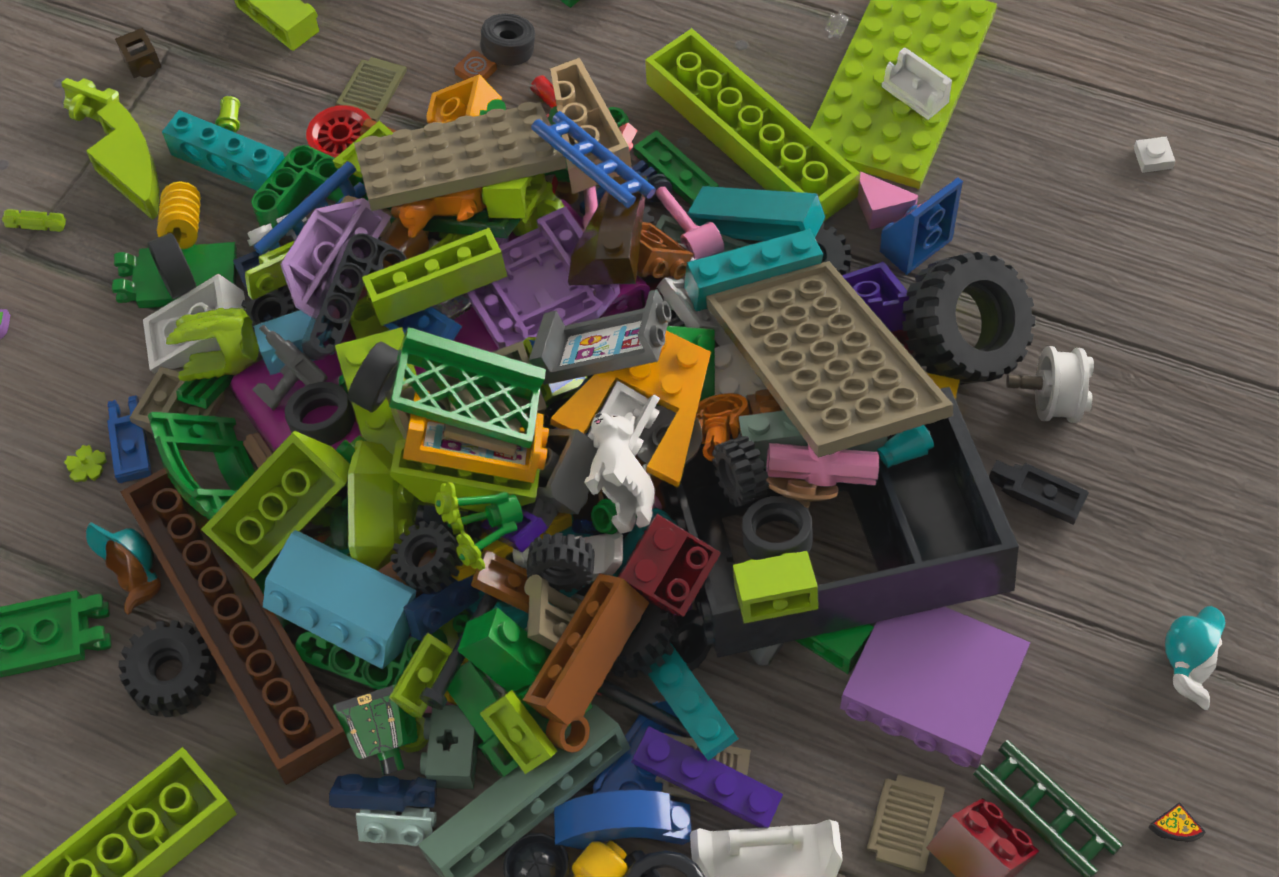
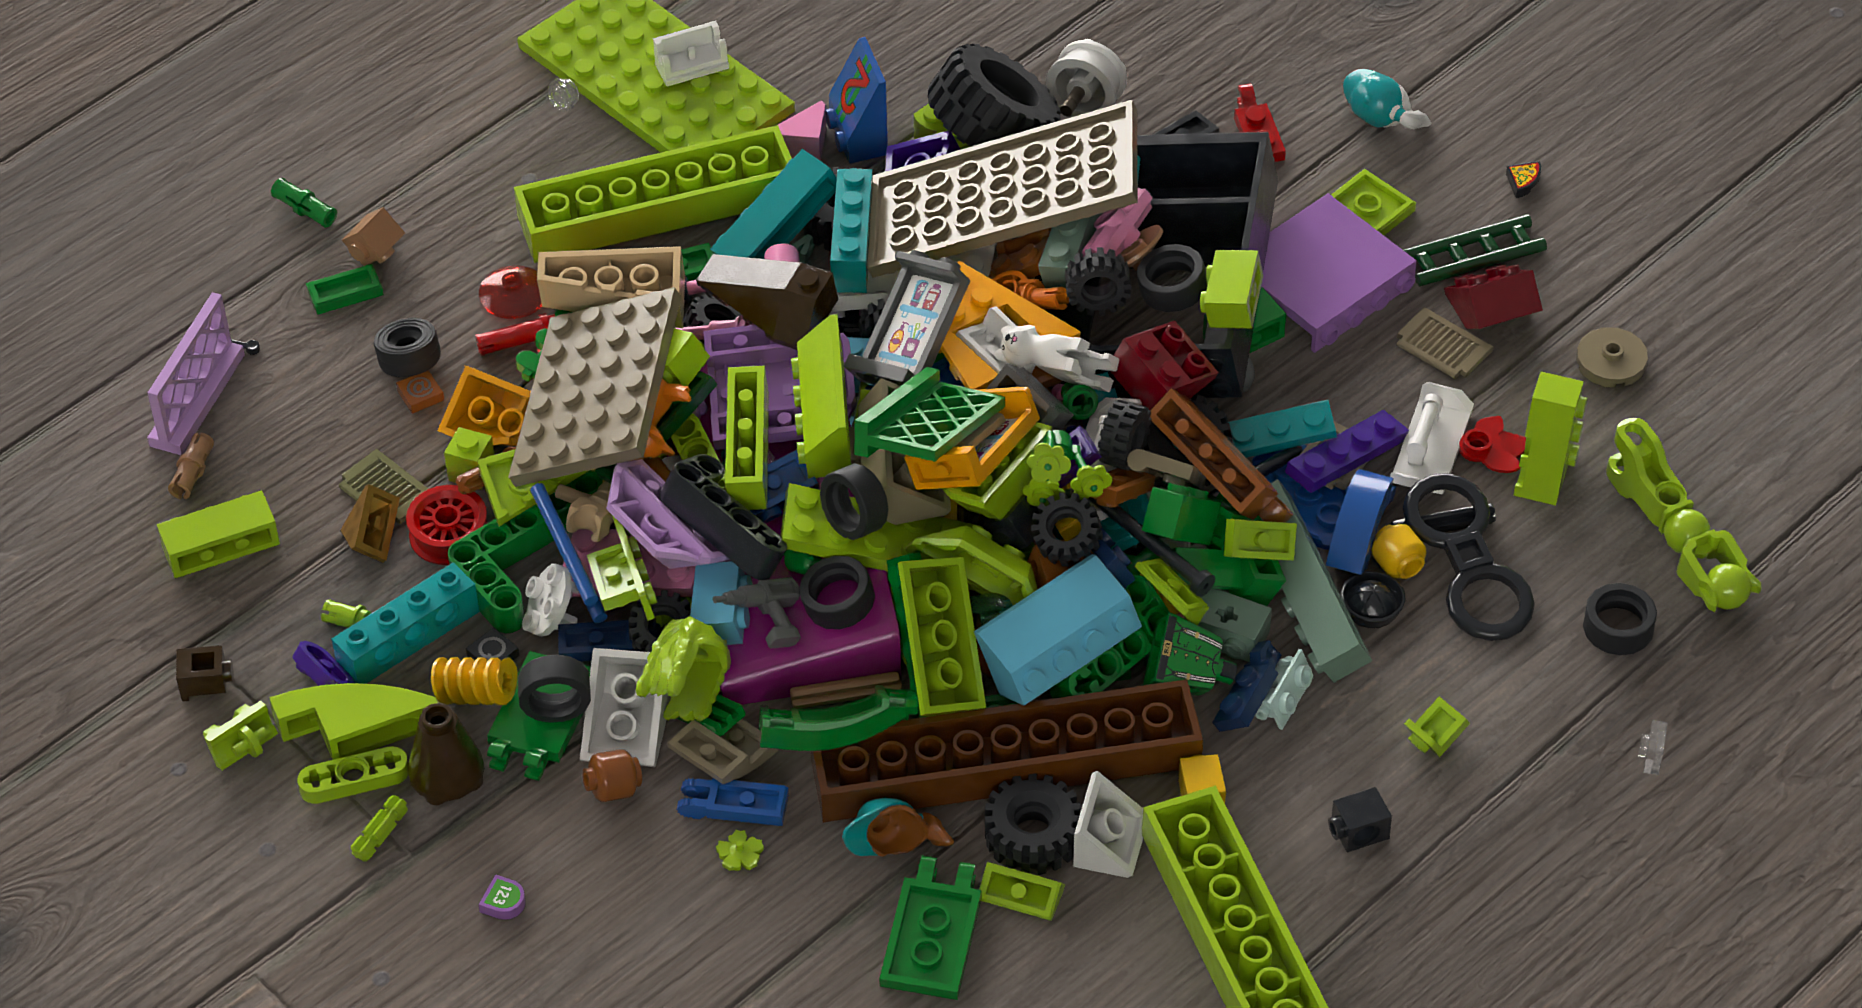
camera: 70 degrees left, 10 degrees down
(81, 195) = (363, 761): none -> lime beam
(97, 226) = (444, 757): none -> dark brown cone
(103, 692) = (1020, 891): none -> lime slope
(123, 345) = (612, 775): none -> dark orange head
(162, 118) = (319, 665): none -> dark purple plate
(179, 722) = (1108, 830): none -> white slope
(229, 220) = (492, 645): none -> black tile
(255, 791) = (1201, 773): none -> yellow brick
(321, 94) = (372, 523): none -> pearl gold slope
(408, 114) = (465, 450): none -> lime brick
(504, 314) = (821, 400): none -> lime slope
(599, 172) = (688, 269): blue bar -> none
(616, 82) = (510, 292): none -> clear red dish
(1054, 689) = (1375, 201): none -> lime tile
(1102, 554) = (1257, 118): none -> red plate

